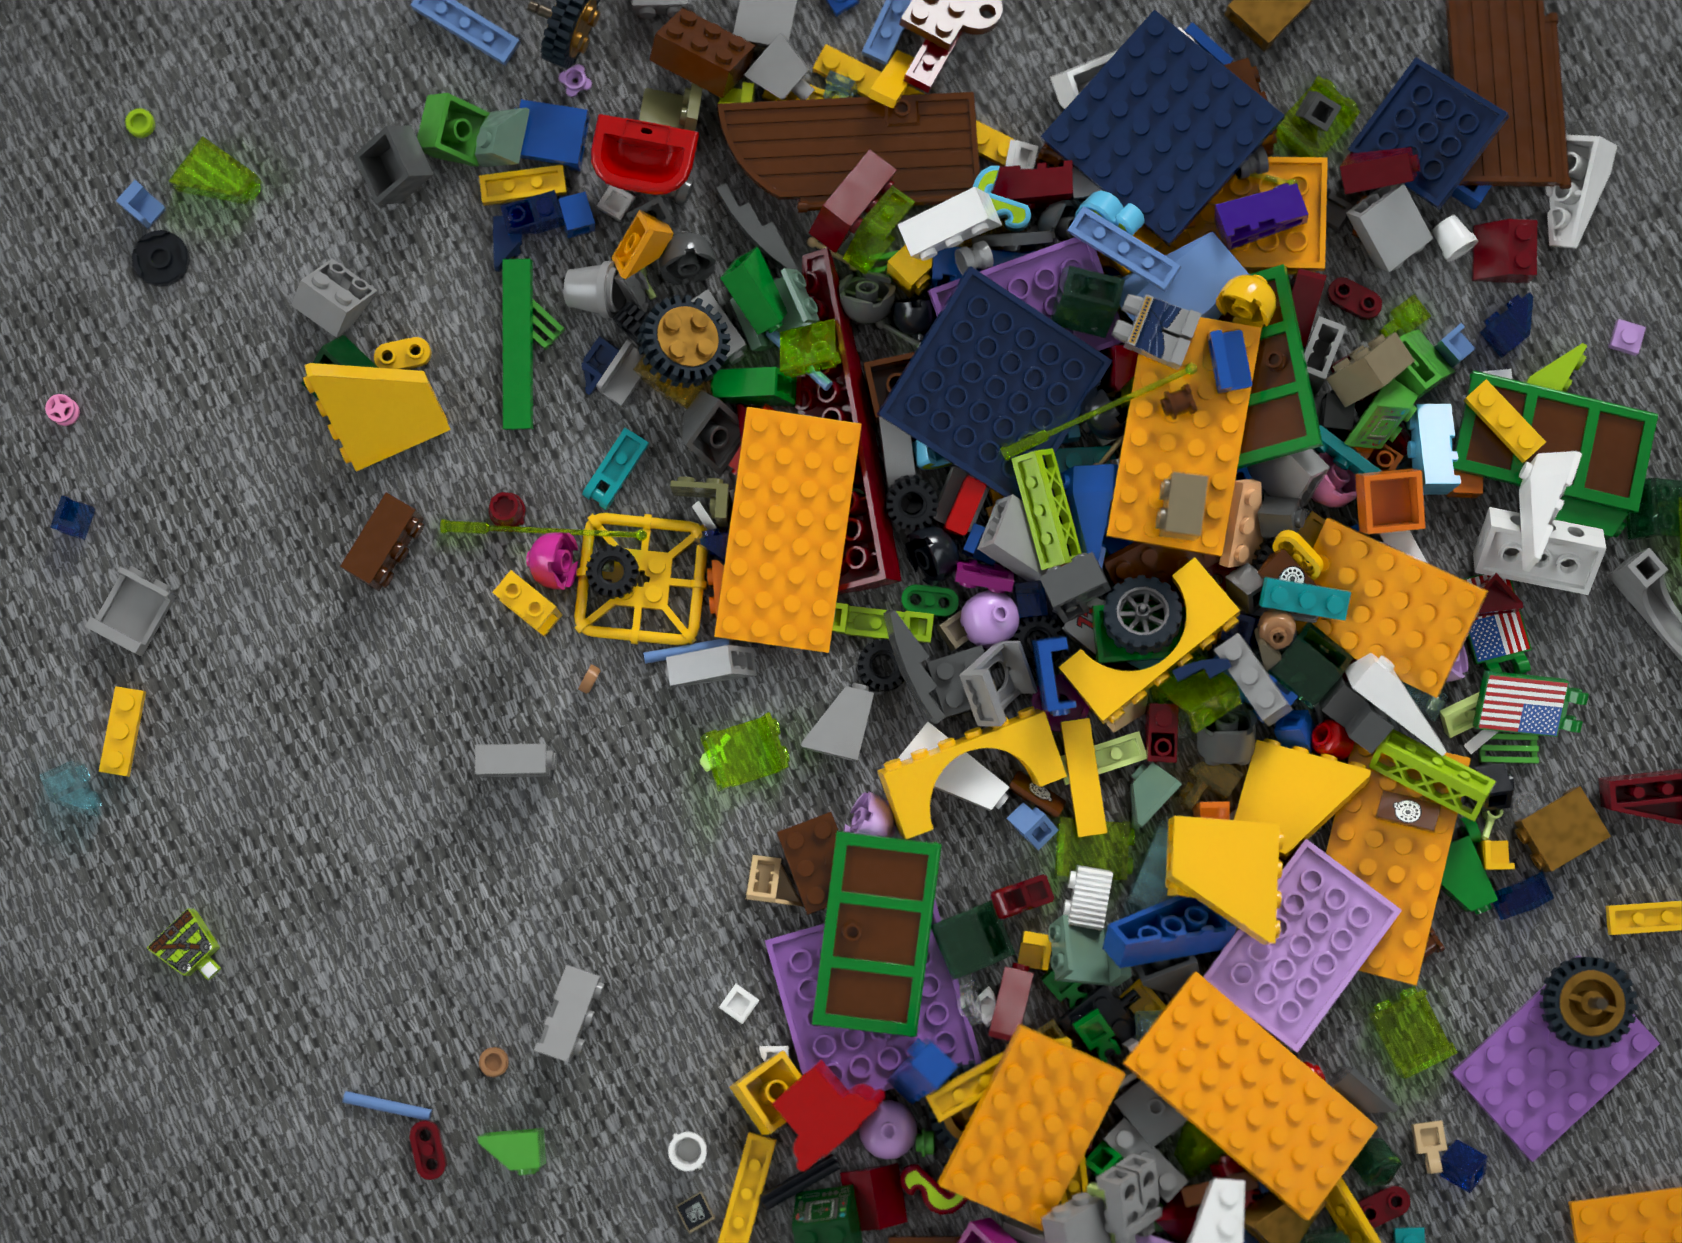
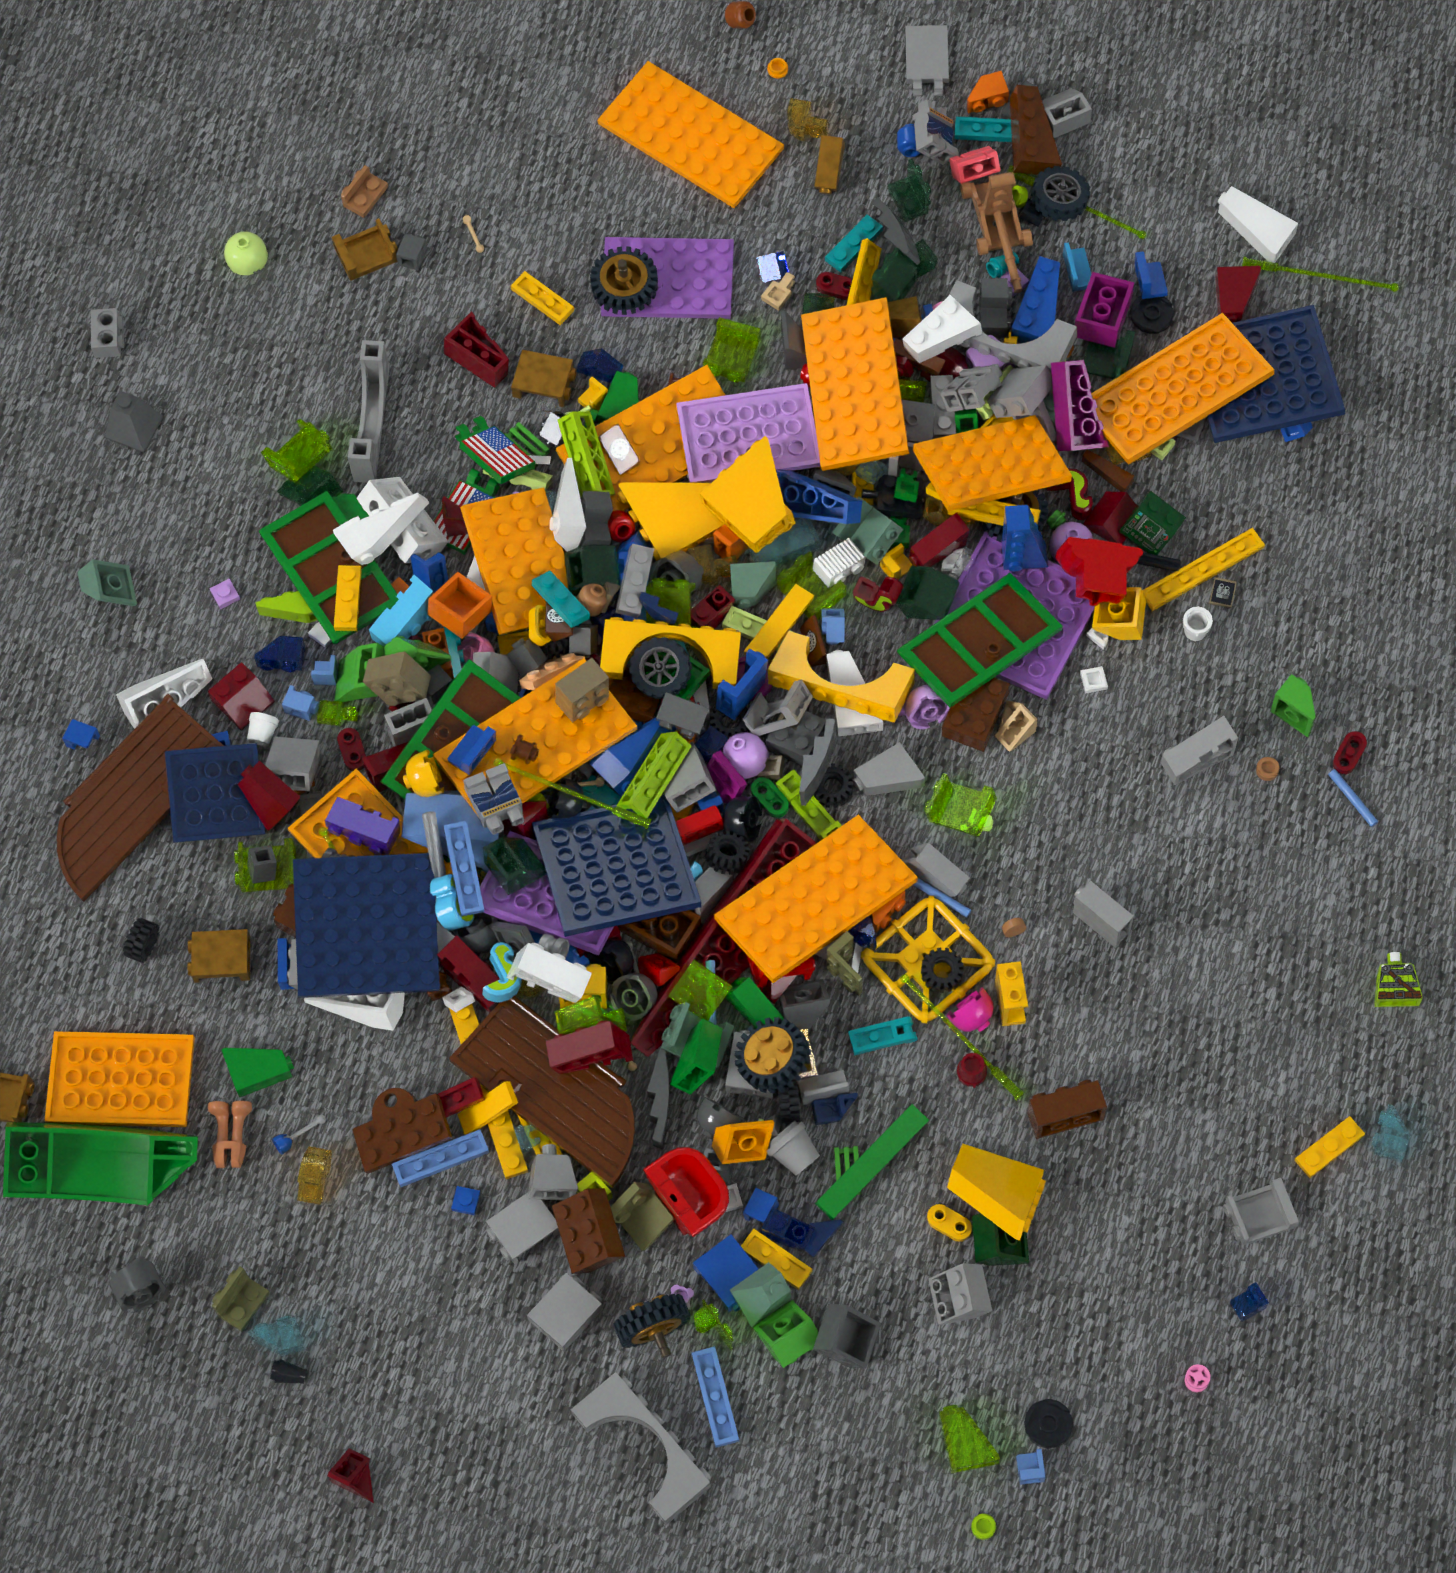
camera: 130 degrees left, 15 degrees down
(526, 76) = (707, 1318): none -> clear neon green hinge
(871, 341) = (657, 968): none -> red slope
(1173, 246) = (434, 844): none -> light grey axle
(1445, 293) = (300, 704): none -> medium blue brick
(1452, 522) = (432, 571): none -> blue panel
(1608, 82) = (79, 734): none -> blue panel

